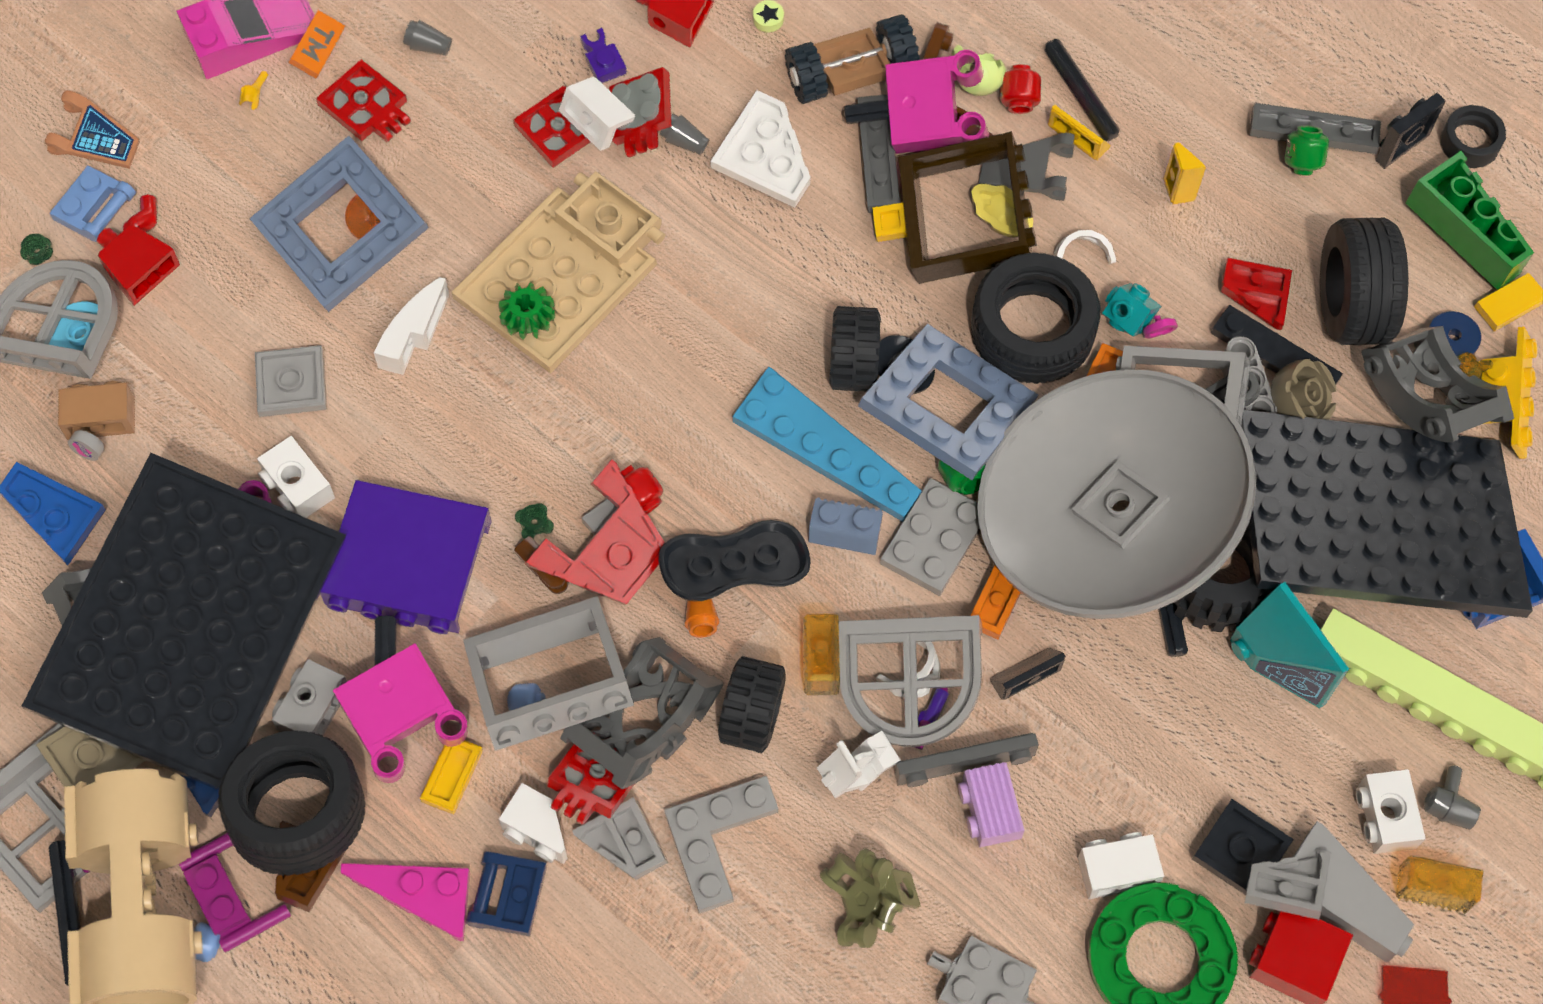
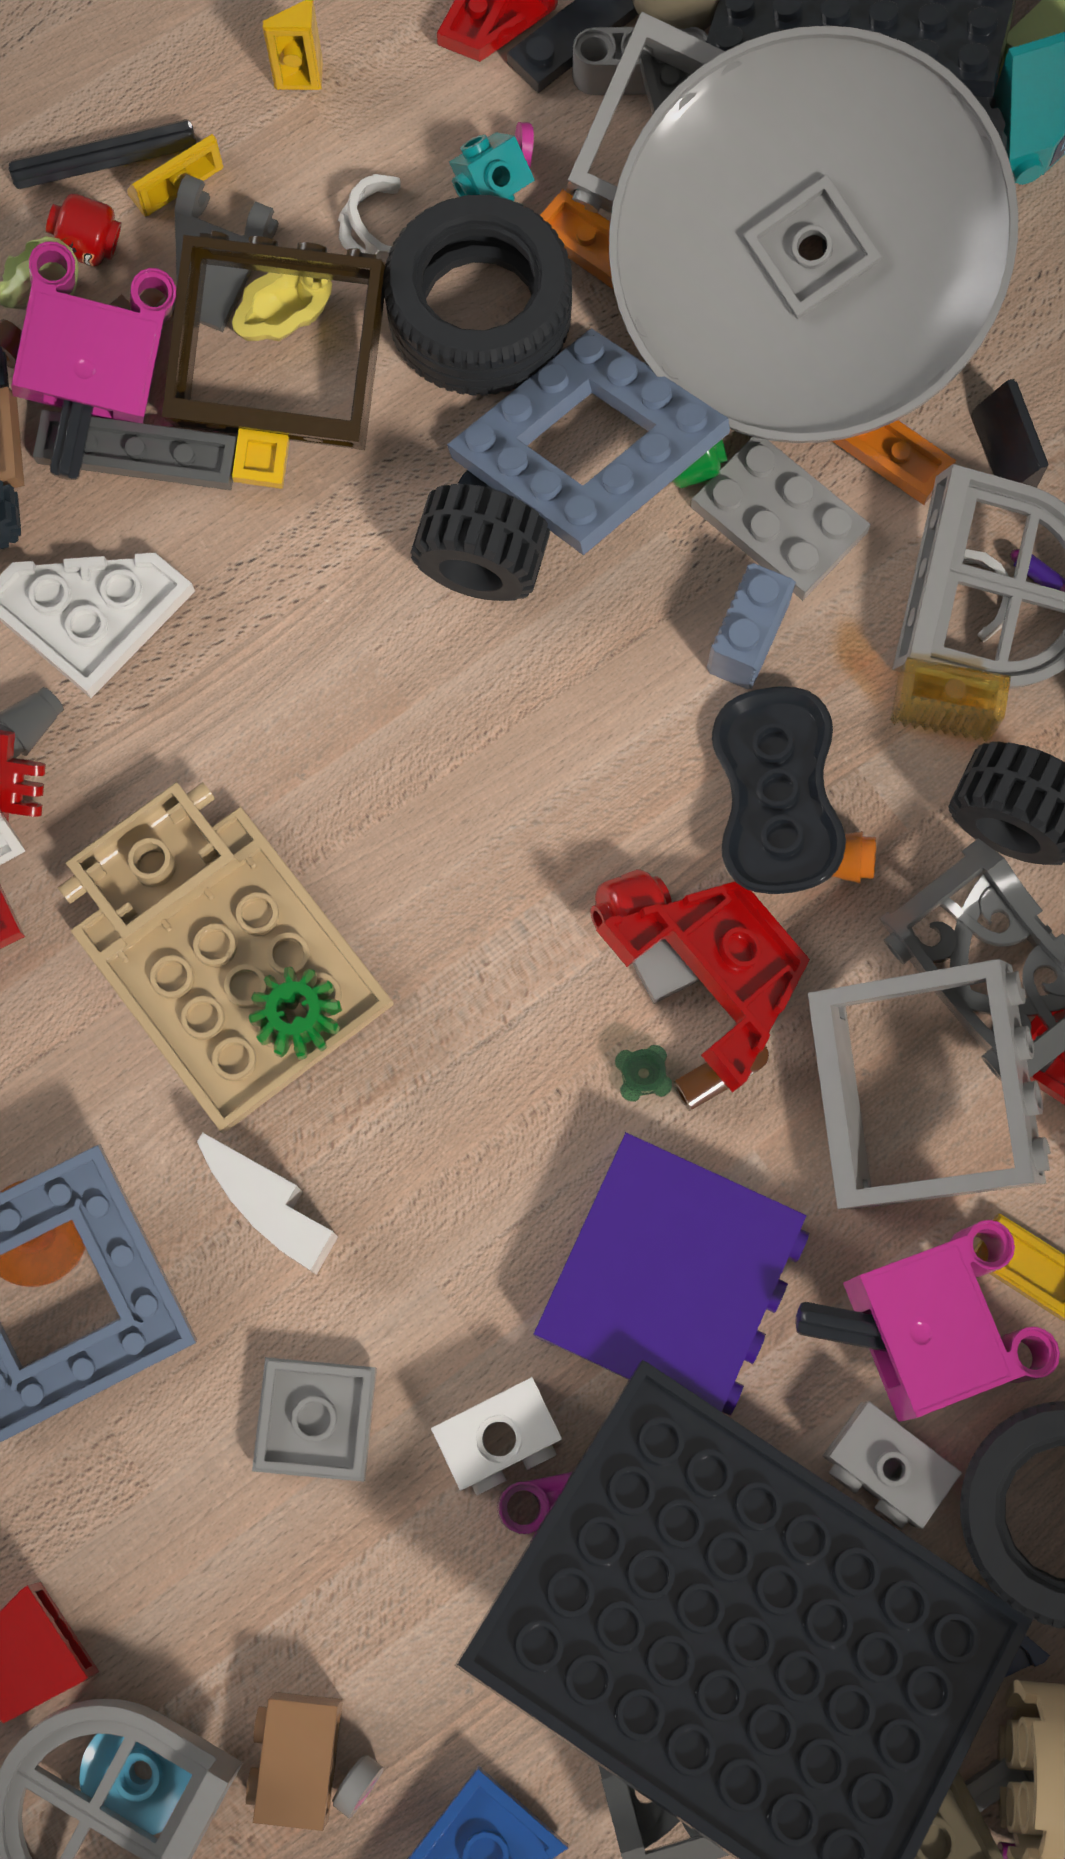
camera: 75 degrees left, 10 degrees up
(523, 695) = (927, 1137): medium blue piece -> none
(807, 433) = (577, 654): dark azure wing -> none

